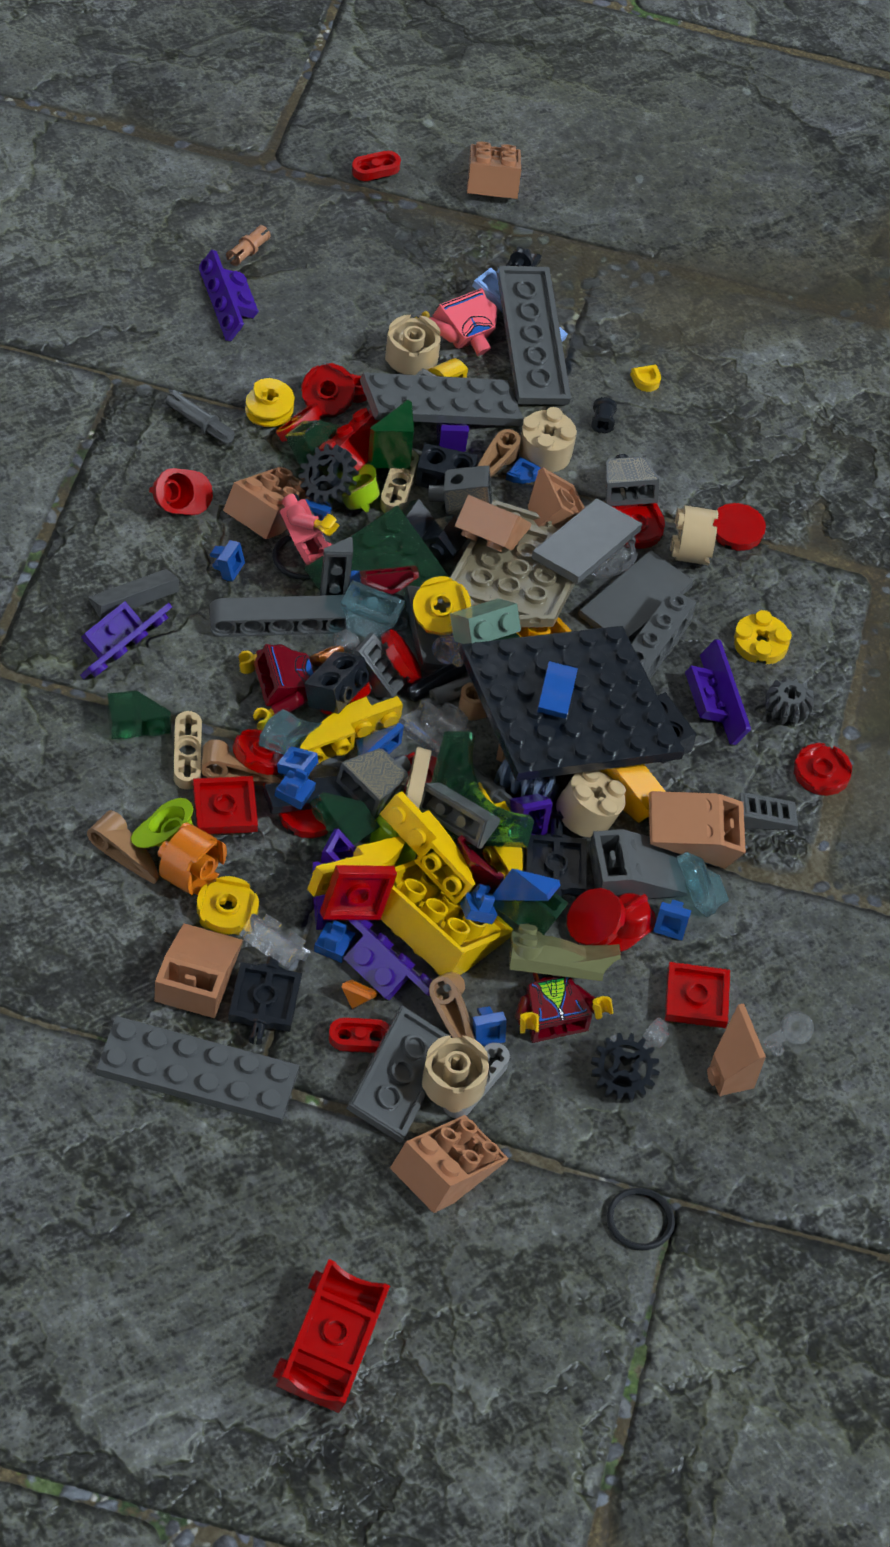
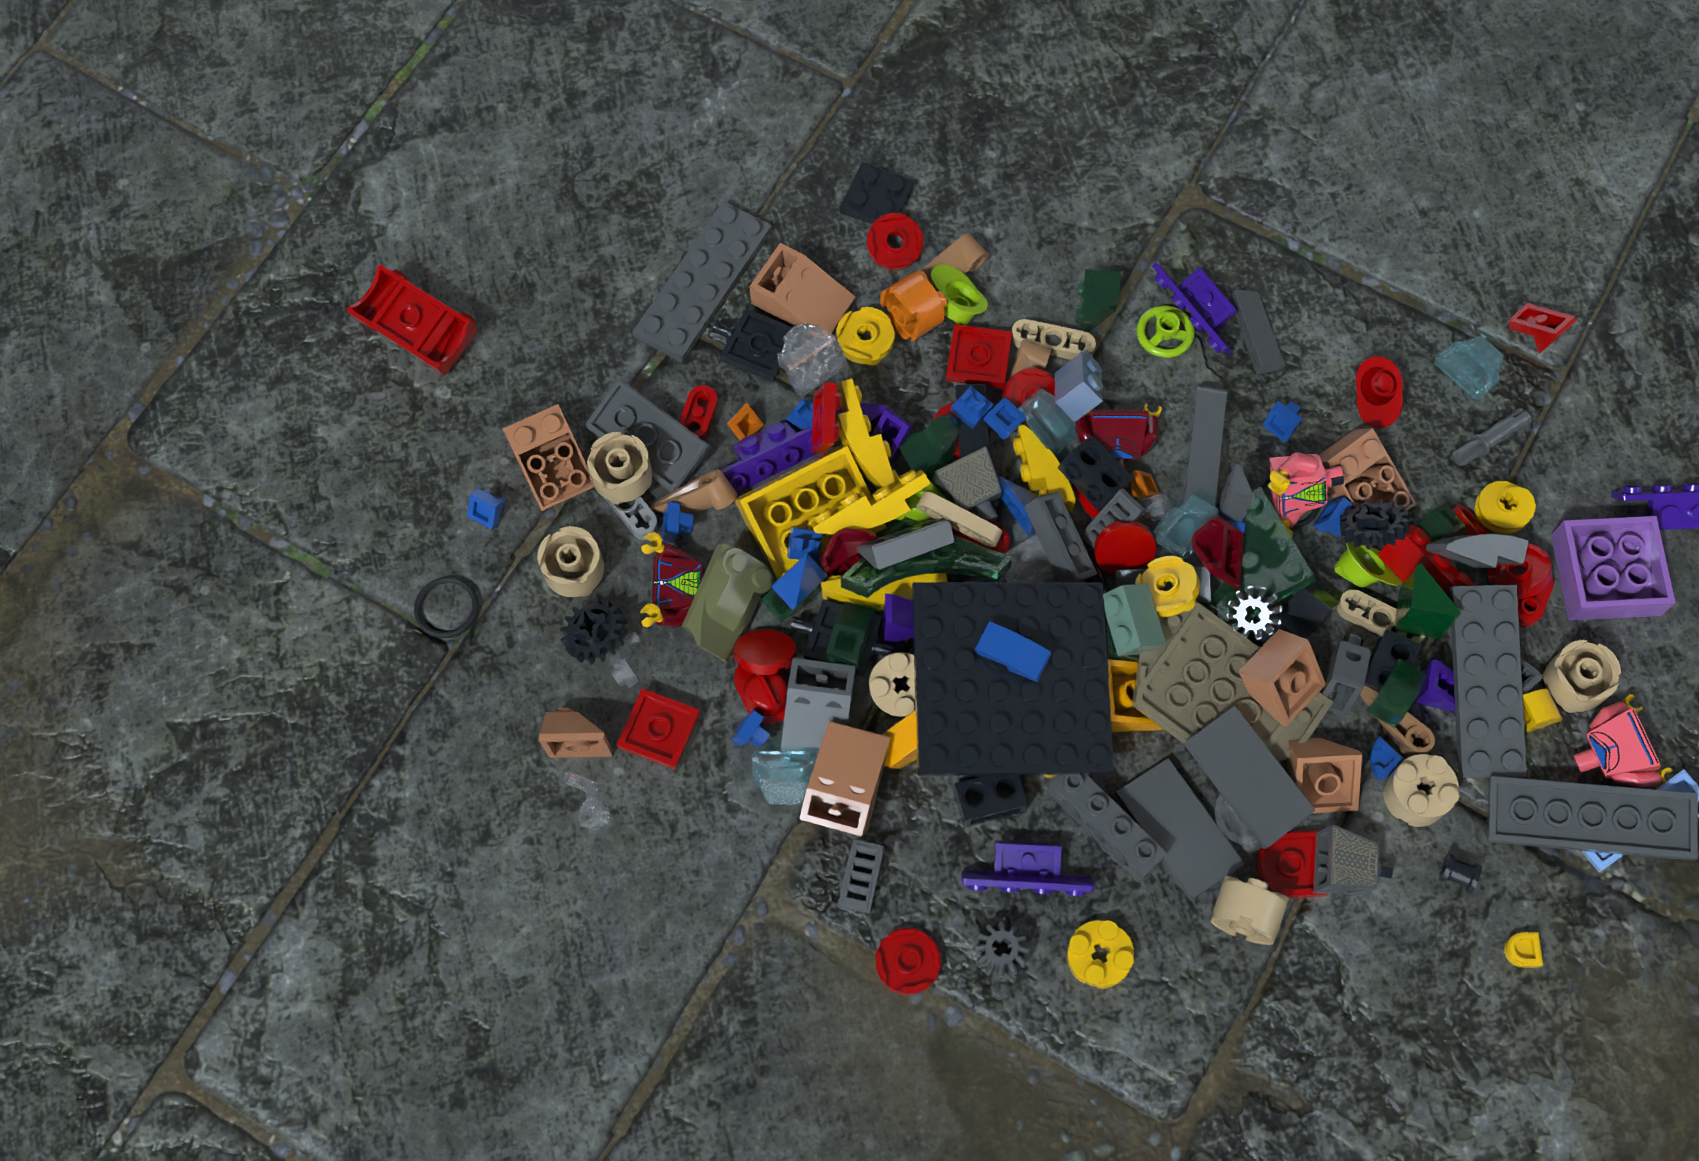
camera: 115 degrees right, 15 degrees up
(52, 929) = (875, 194): none -> black plate
(81, 379) = (1541, 323): none -> red slope
(104, 910) = (889, 257): none -> red tile
(129, 435) = (1472, 365): none -> clear light blue slope
(152, 660) = (1170, 318): none -> lime piece
(246, 706) = (1079, 385): none -> sand blue hinge
(310, 329) = (1612, 568): none -> medium lavender slope
(330, 402) = (1481, 550): none -> slope
(412, 700) = (1060, 539): none -> dark grey slope
(443, 544) = (1266, 616): none -> dark grey gear
(479, 448) = (1397, 693): none -> clear green slope
(528, 1203) = (485, 508): none -> blue tile
(563, 1102) = (557, 565): none -> tan brick
(564, 840) = (850, 634): none -> clear green slope
(739, 526) = (1271, 983): red tile -> none

